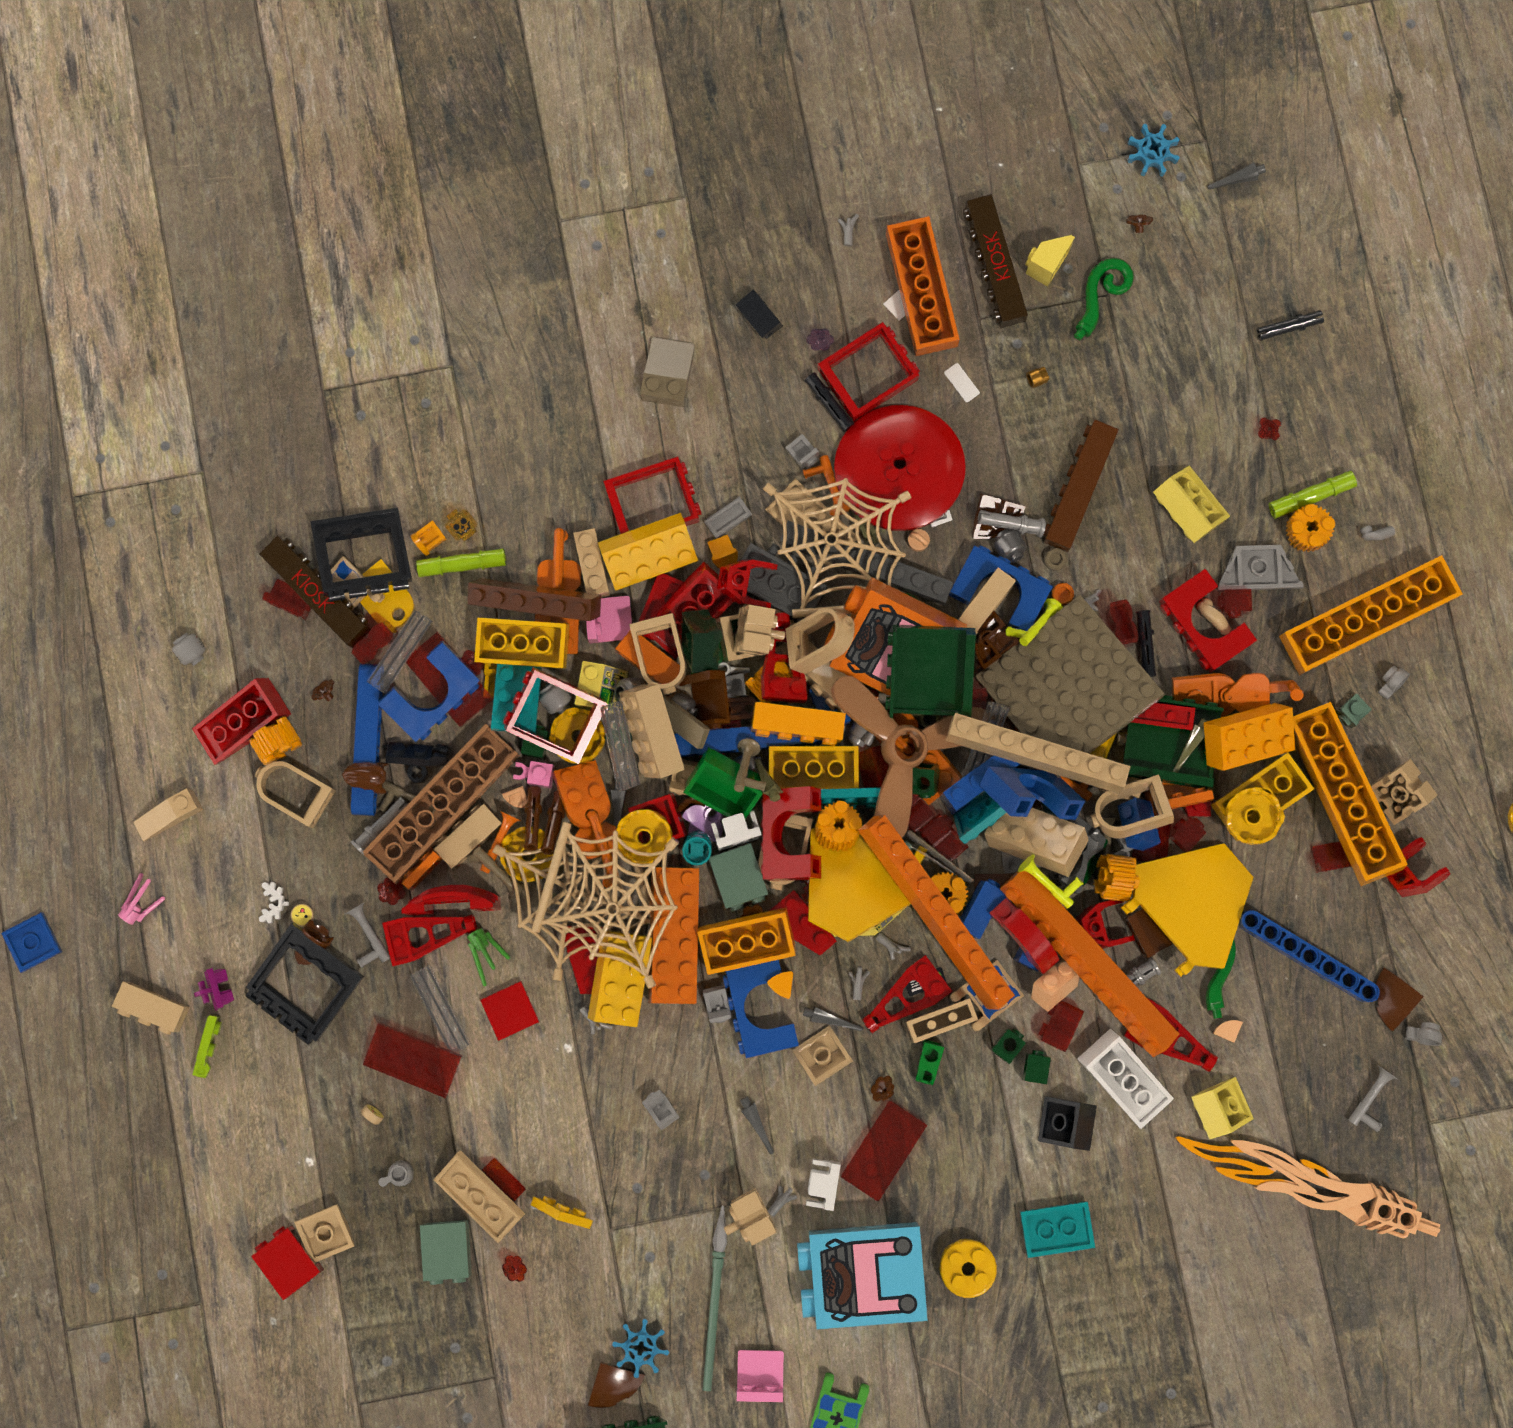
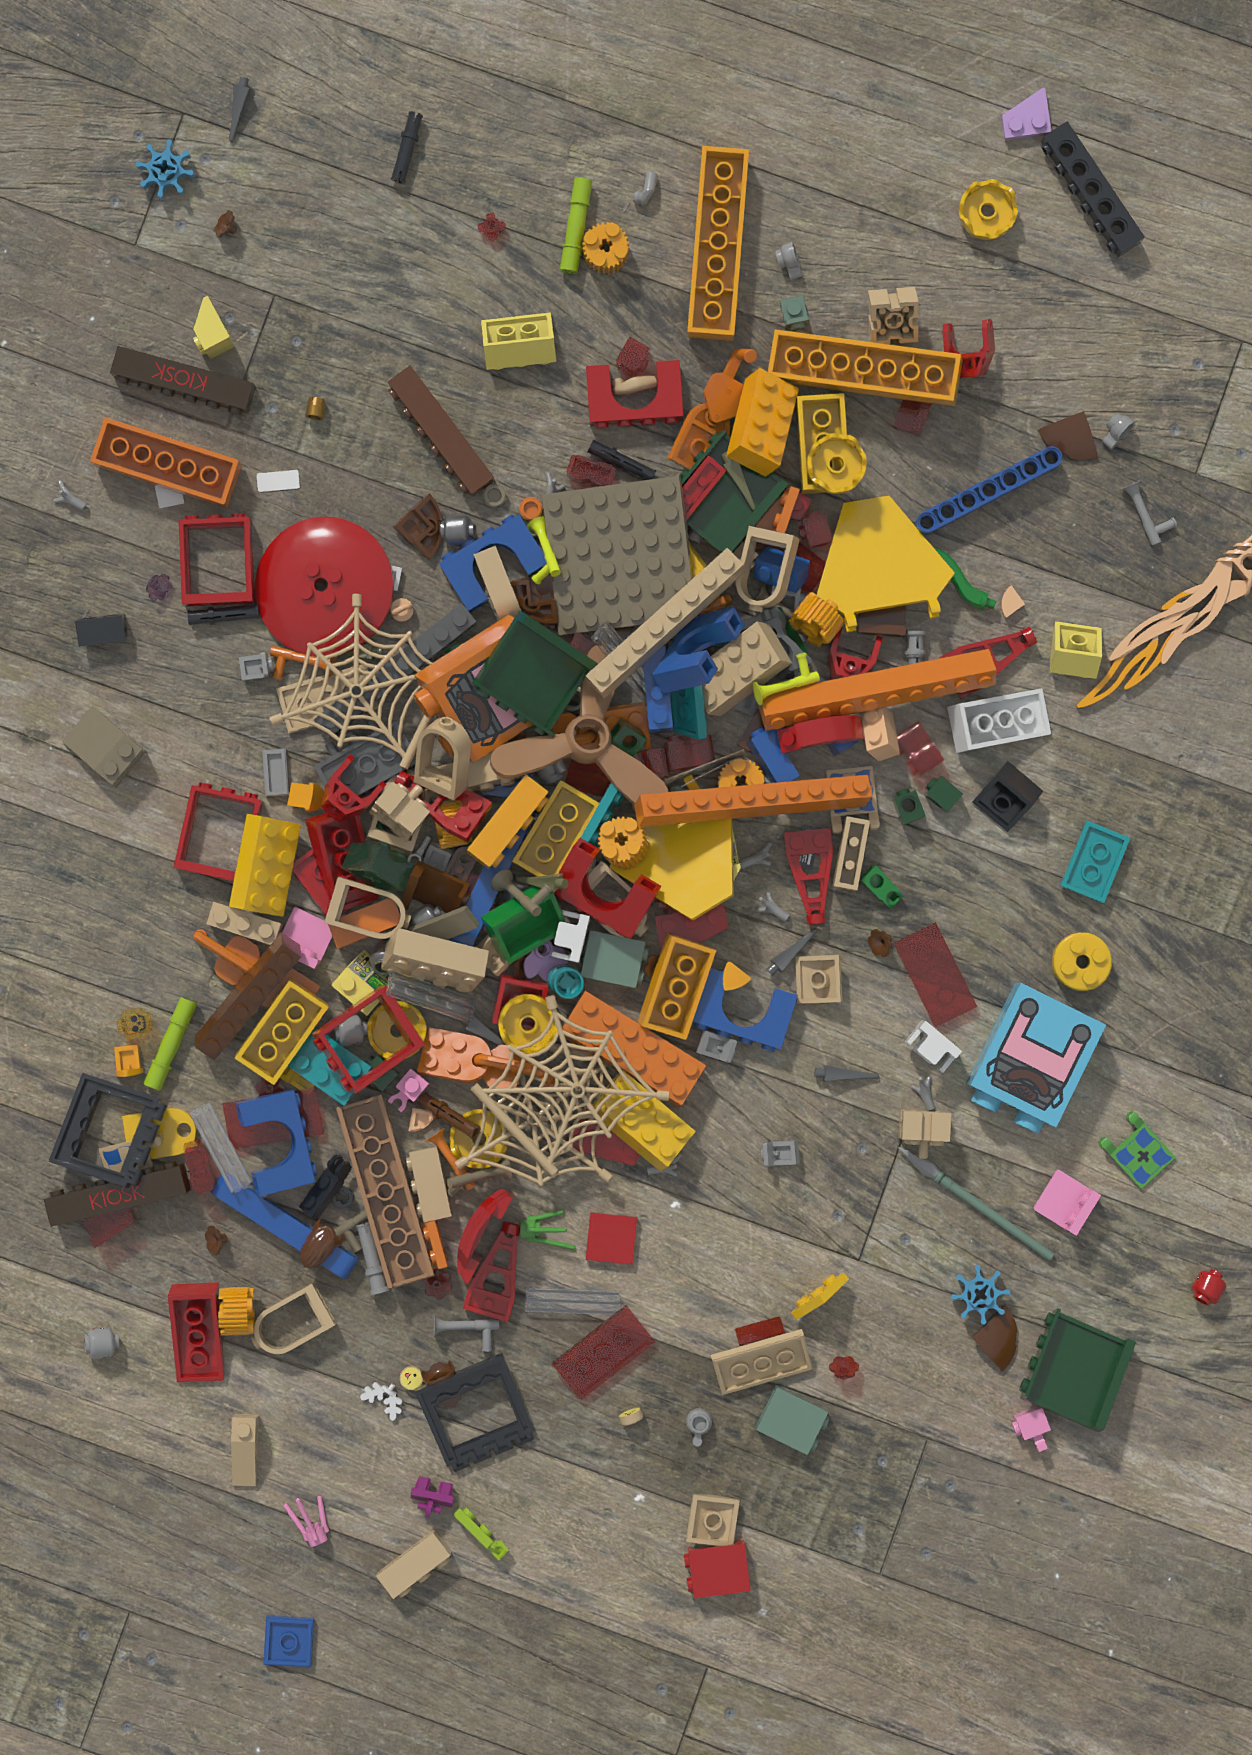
camera: 65 degrees left, 5 degrees up
(555, 816) = (458, 1092): reddish brown pin -> none
(1021, 524) = (444, 507): light grey pin -> none
(1090, 318) = (290, 327): green plant -> none
(1259, 569) = (615, 317): light grey wing -> none

